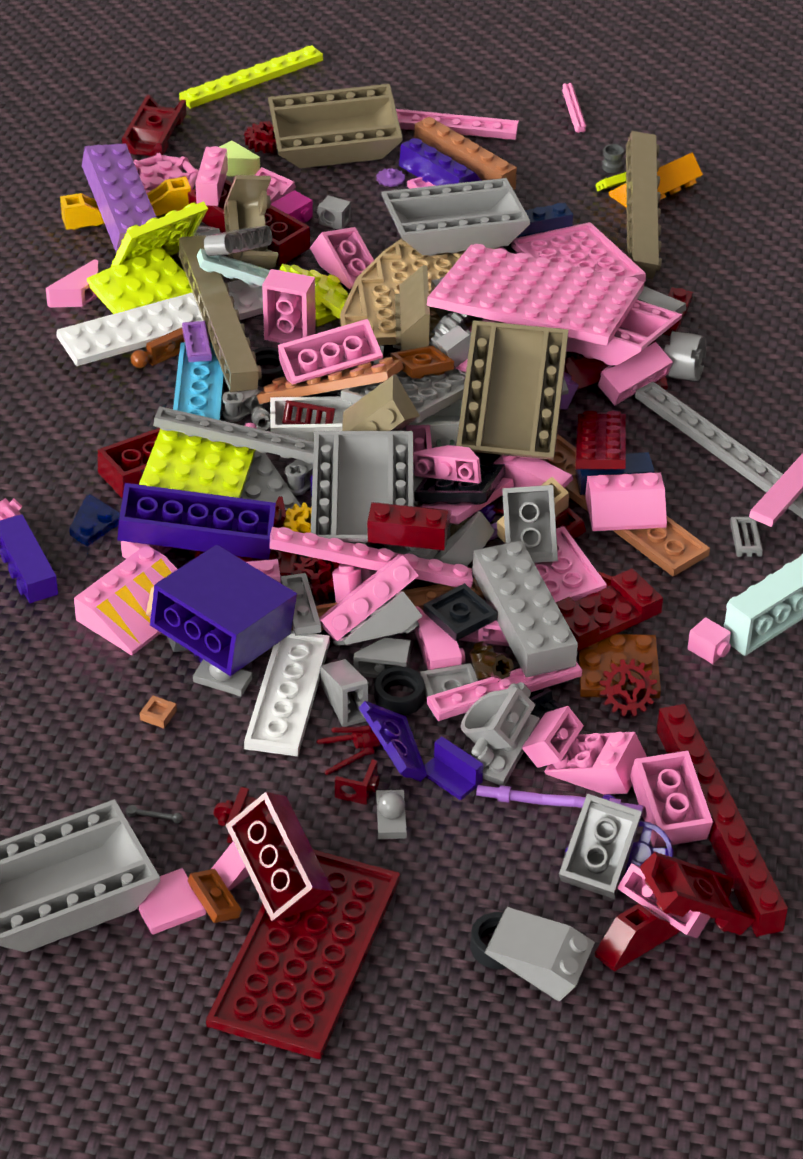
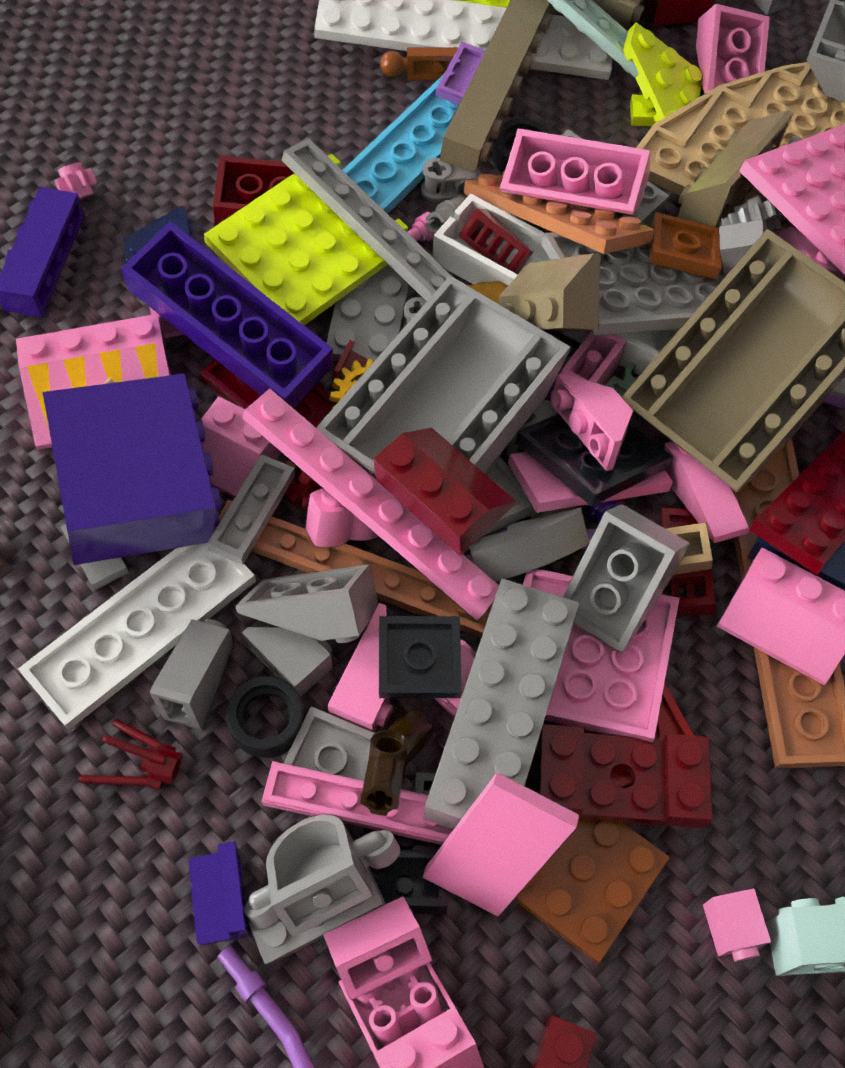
camera: 35 degrees right, 20 degrees up
(288, 306) = (597, 83): bright pink brick -> none
(363, 789) = (97, 844): dark red bracket -> none
(368, 597) = (323, 558): bright pink brick -> none
(391, 814) = (89, 908): light grey tile -> none
(396, 738) = (186, 798): dark purple wing -> none
(576, 652) = (500, 844): none -> bright pink tile
(640, 685) = (567, 935): dark red gear -> none

